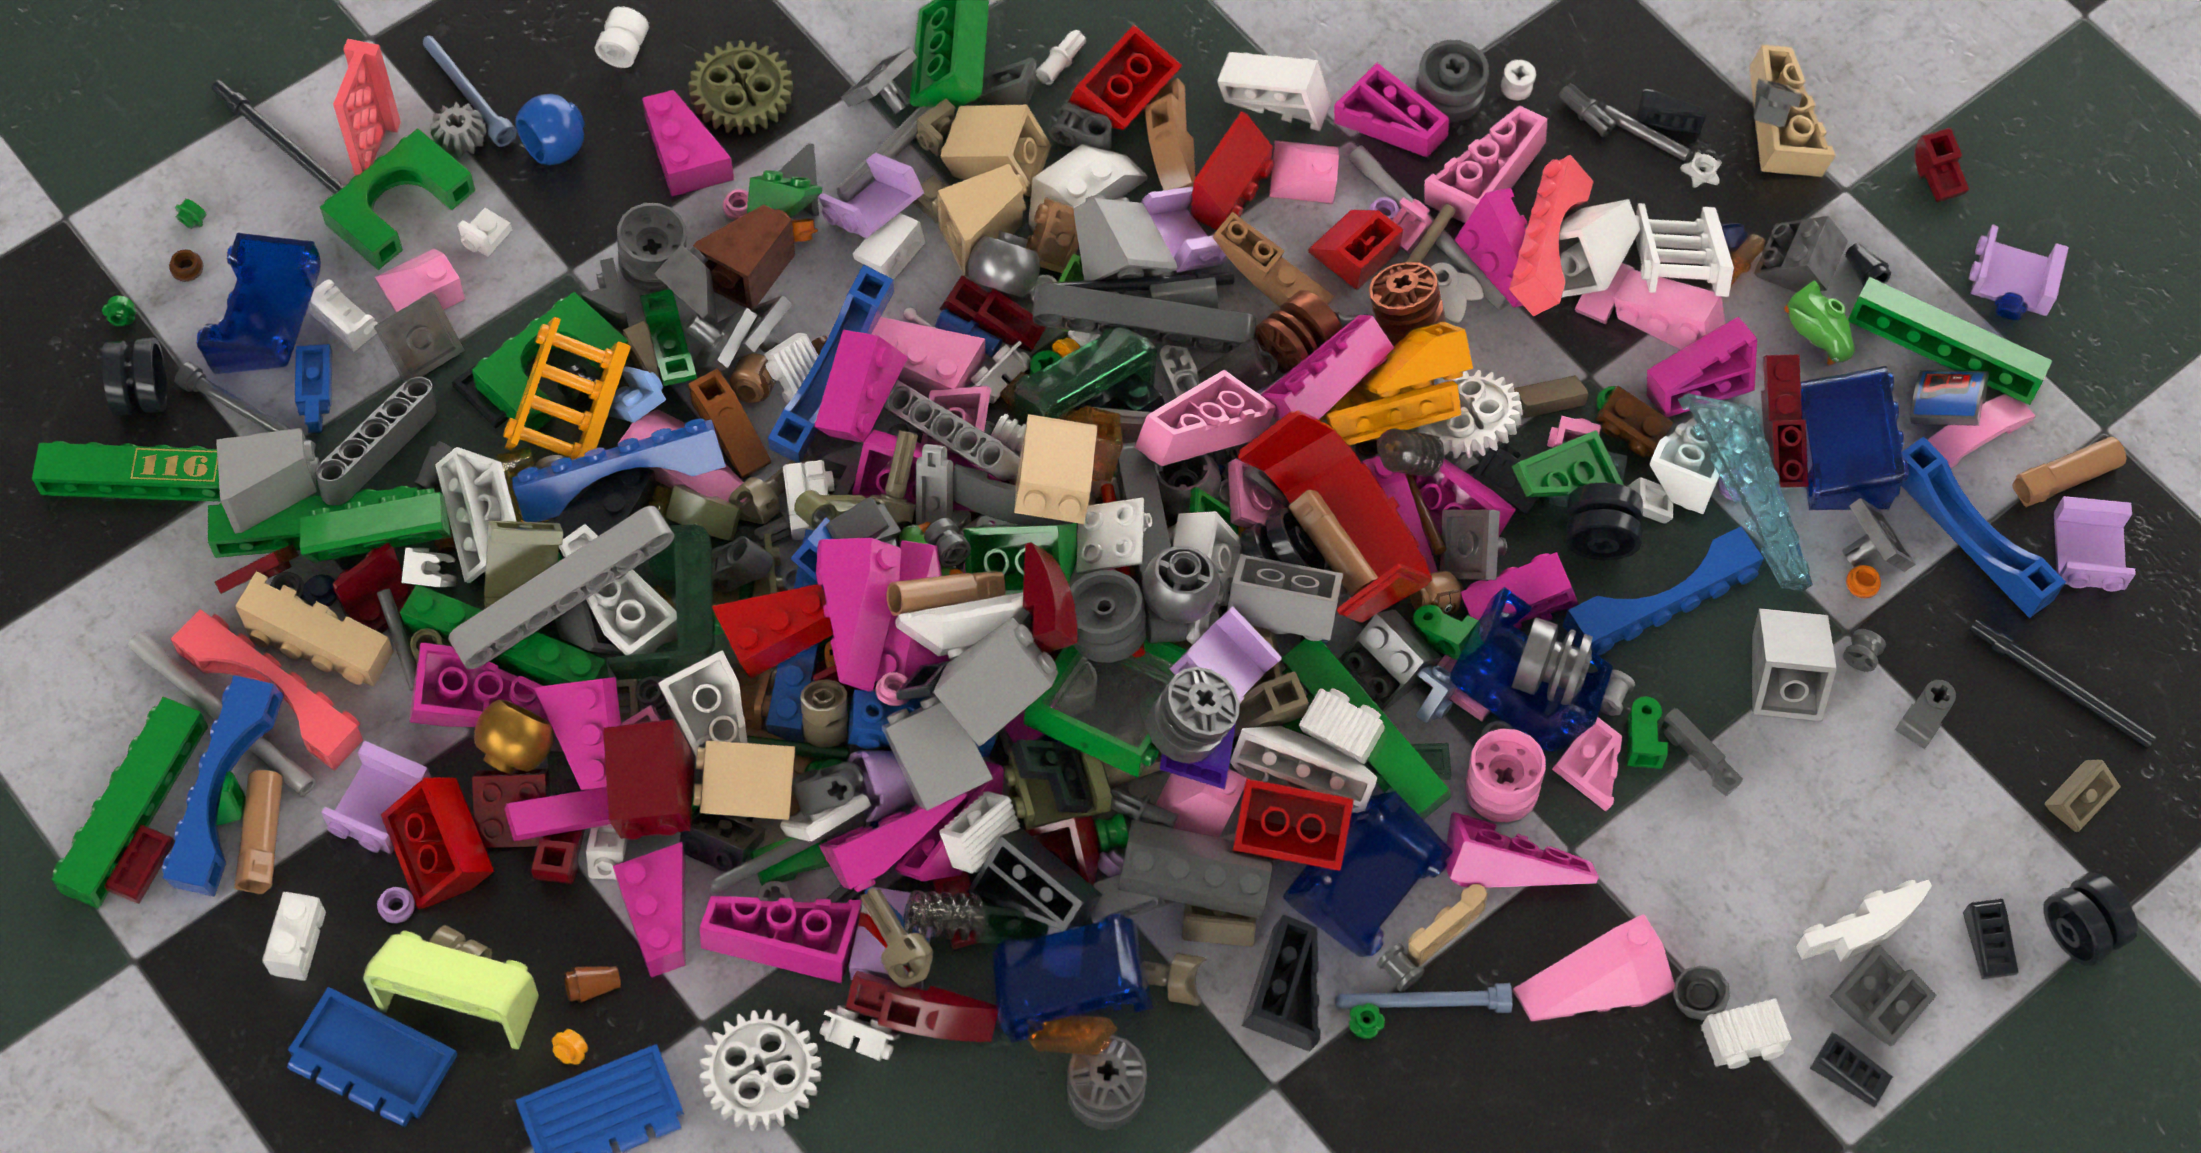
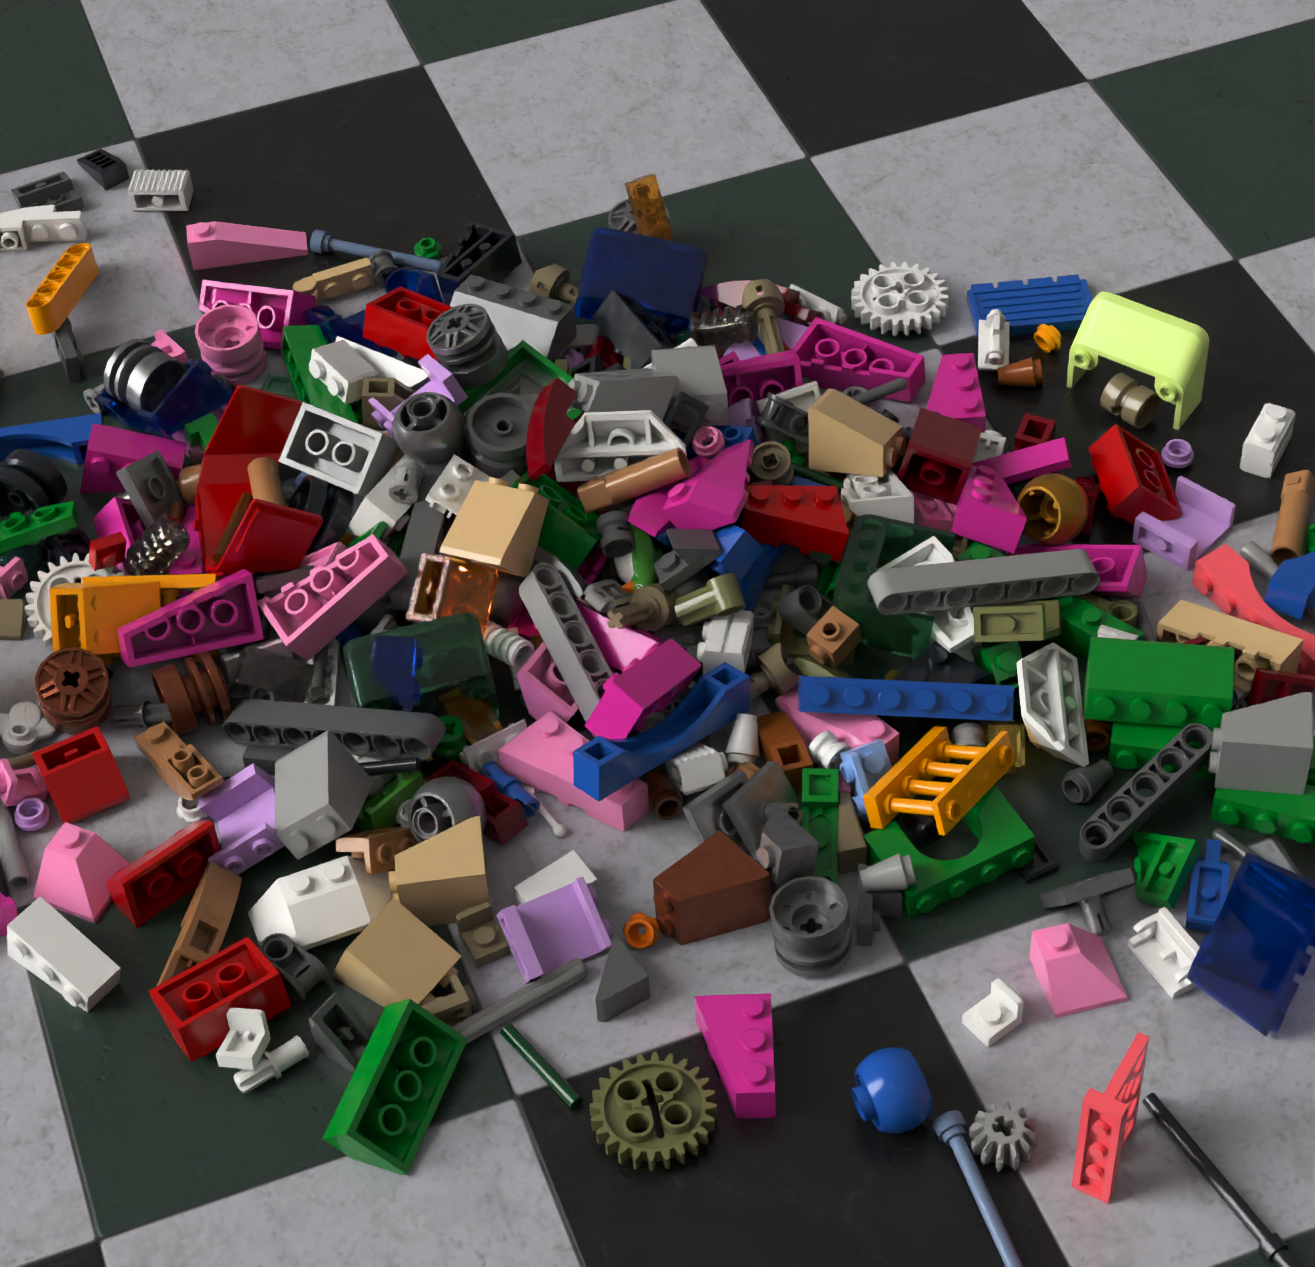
camera: 155 degrees left, 15 degrees down
(355, 388) = (1162, 867): none -> green wing
(372, 1055) = (1234, 379): blue hinge -> none
(411, 162) = (1058, 1102): green arch -> none
(592, 292) = (889, 874): none -> light grey cone
(622, 36) = (776, 1205): white wheel -> none
(631, 1020) = (993, 341): none -> white hinge
(677, 410) = (827, 750): none -> white wheel
(711, 515) = (833, 637): none -> medium nougat brick
(733, 199) = (699, 970): bright pink plate -> none
(763, 417) = (743, 741): none -> white cone
(781, 193) = (651, 942): green slope -> none
(846, 109) = (541, 1066): none -> dark green bar
(881, 81) = (491, 1063): flat silver tile -> none
(1084, 47) = (245, 1040): none -> white bracket
(1089, 317) = (394, 668): none -> clear blue slope
(1187, 534) = (406, 481): none -> light grey bush
(1355, 506) = (238, 513): none -> reddish brown bar
(1458, 436) = (107, 551): none -> red plate
(1642, 735) = (91, 371): green leg -> none
(1701, 992) = (175, 210): dark grey hair -> none
(1754, 795) = (62, 288): none -> light orange beam

